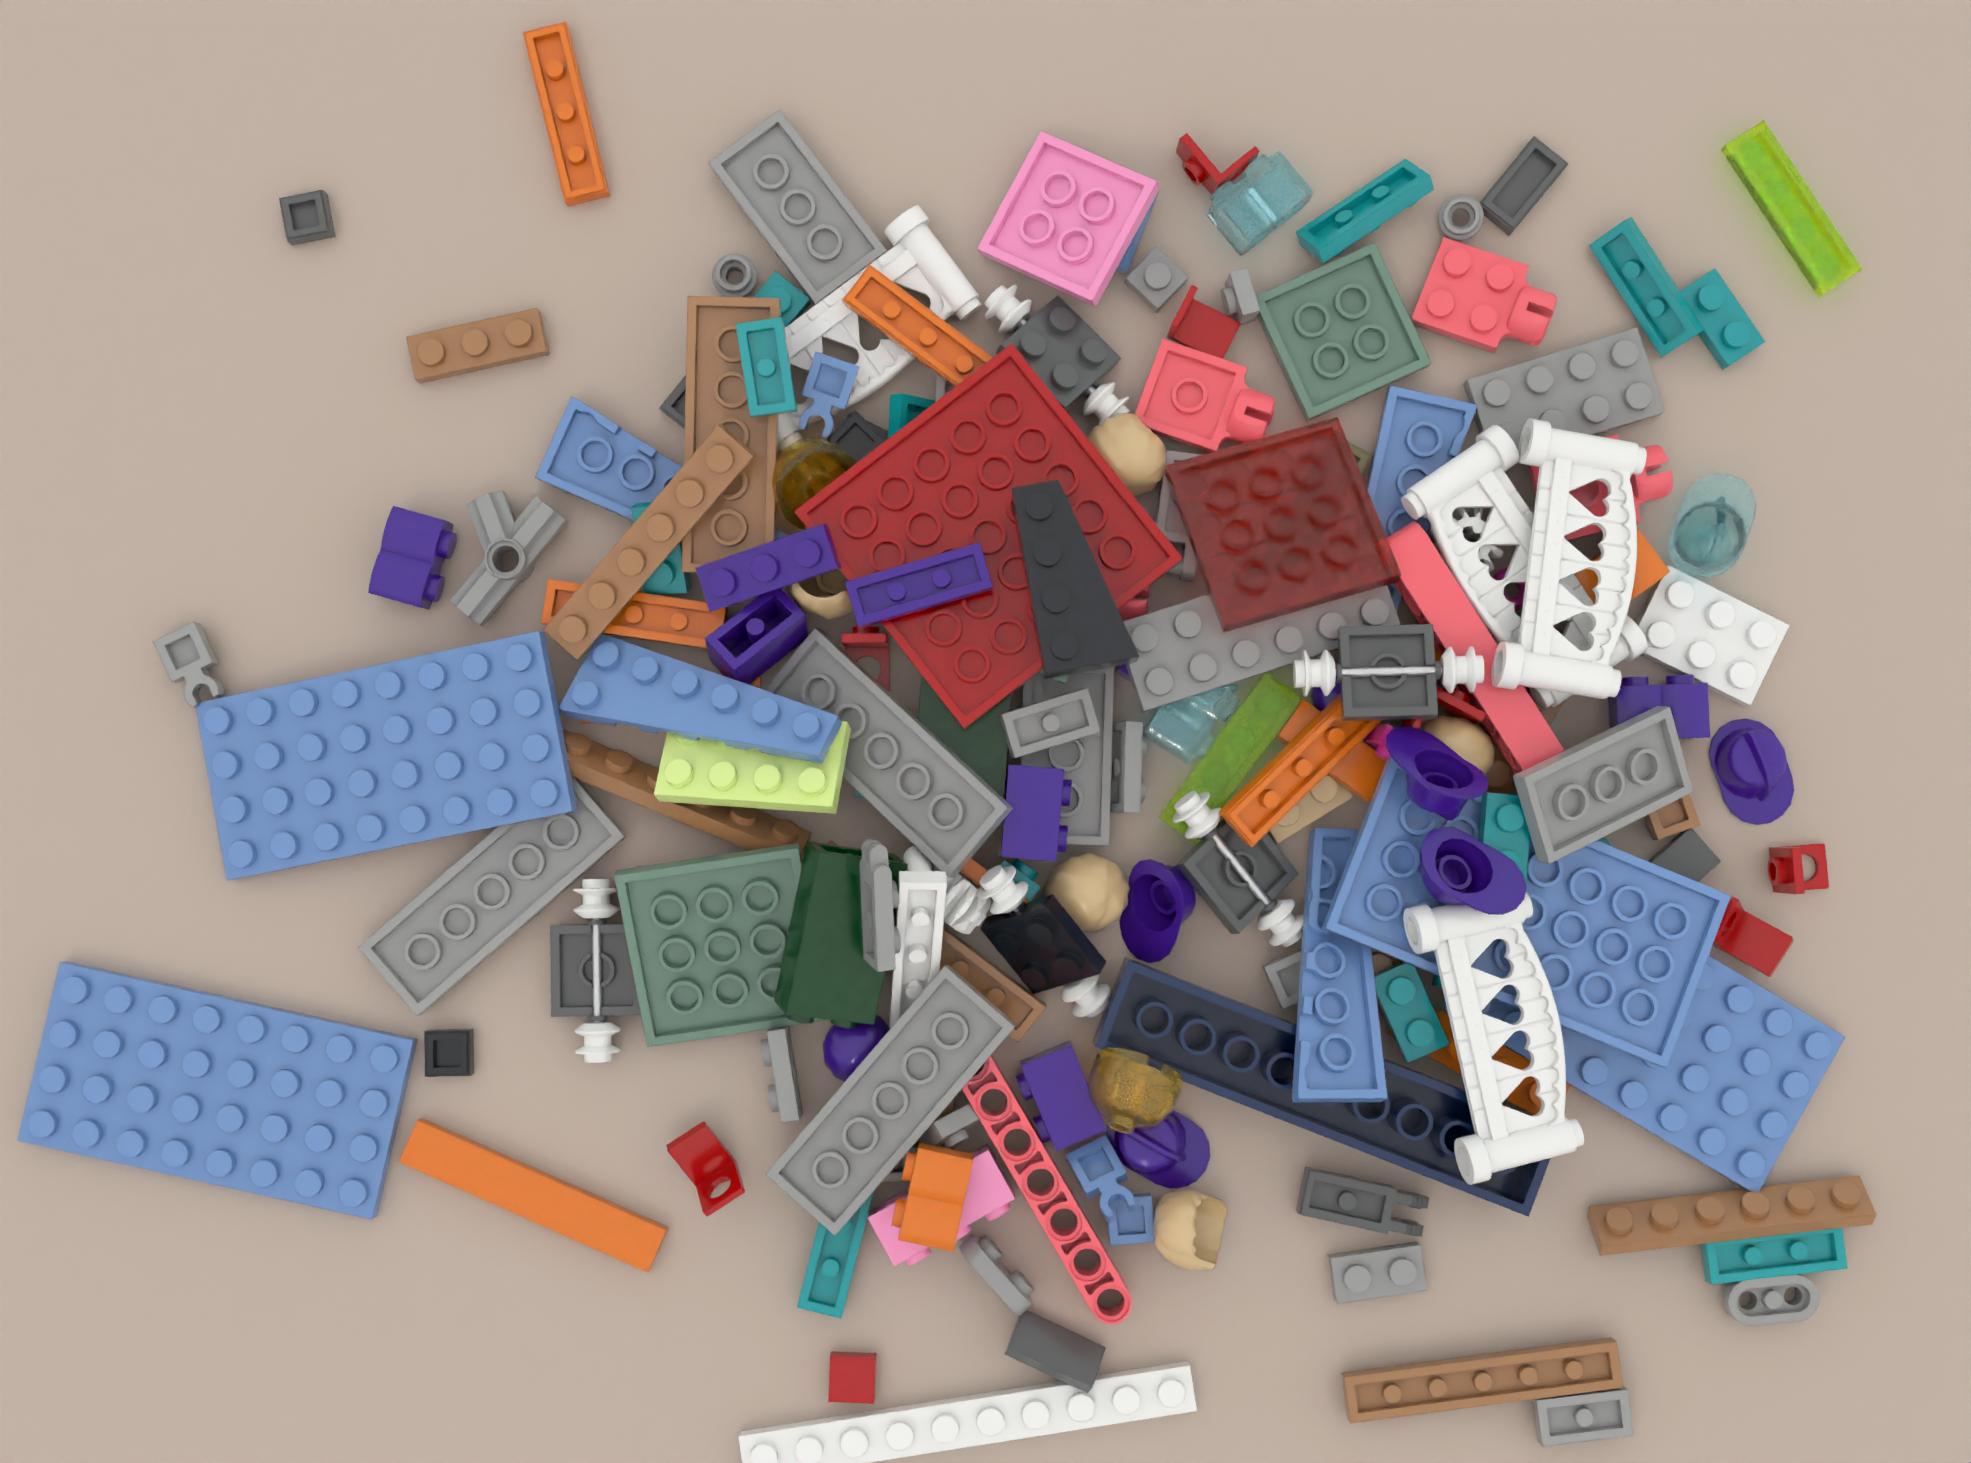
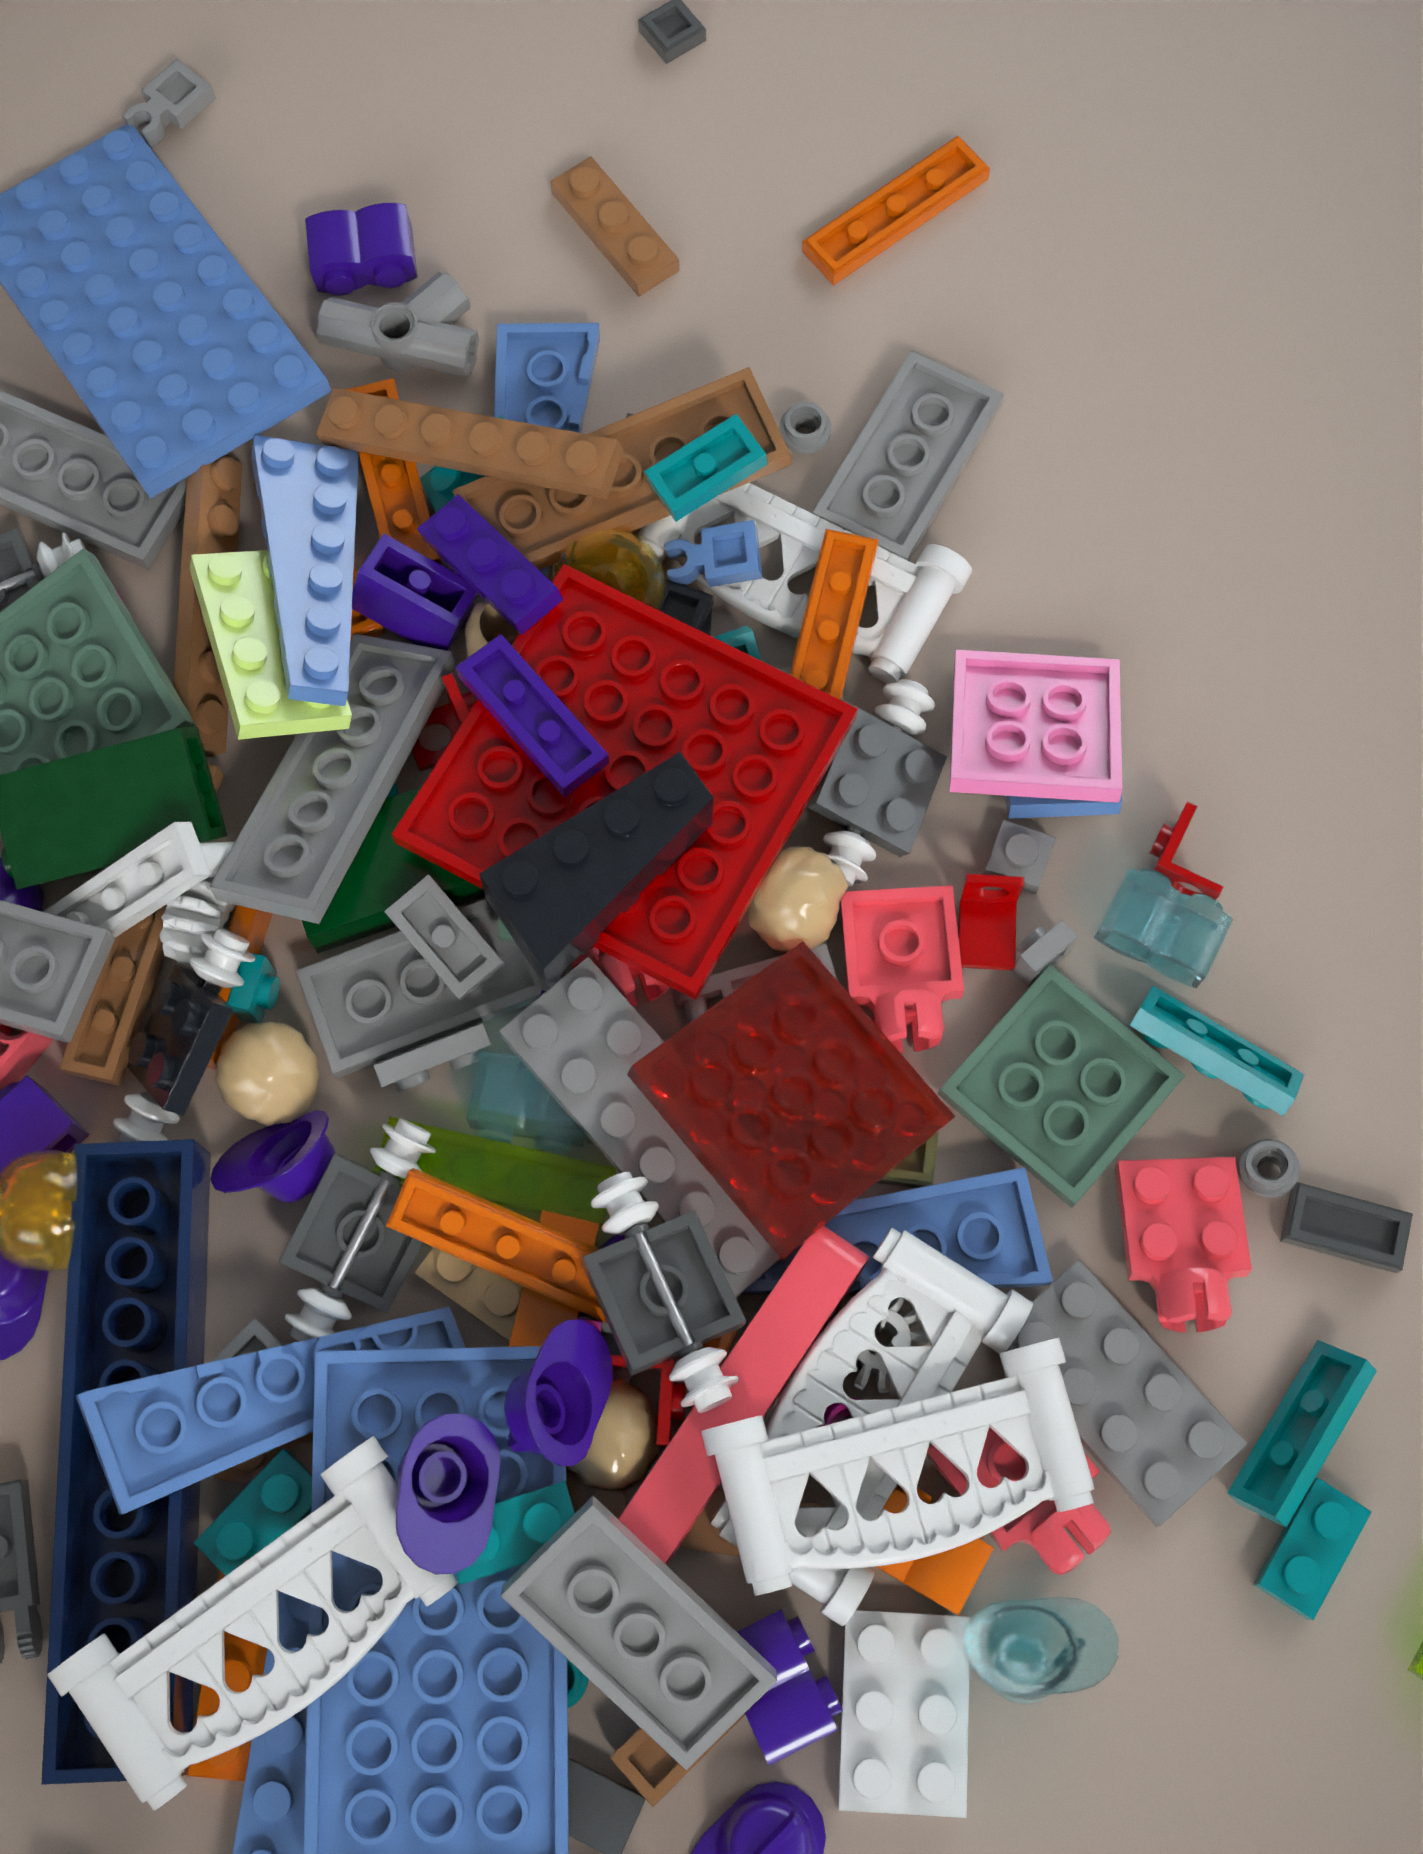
camera: 70 degrees right, 15 degrees down
(792, 299) = (801, 482): teal plate -> none
(878, 900) = (149, 815): light grey hinge -> none
(1033, 824) = (330, 963): dark purple brick -> none

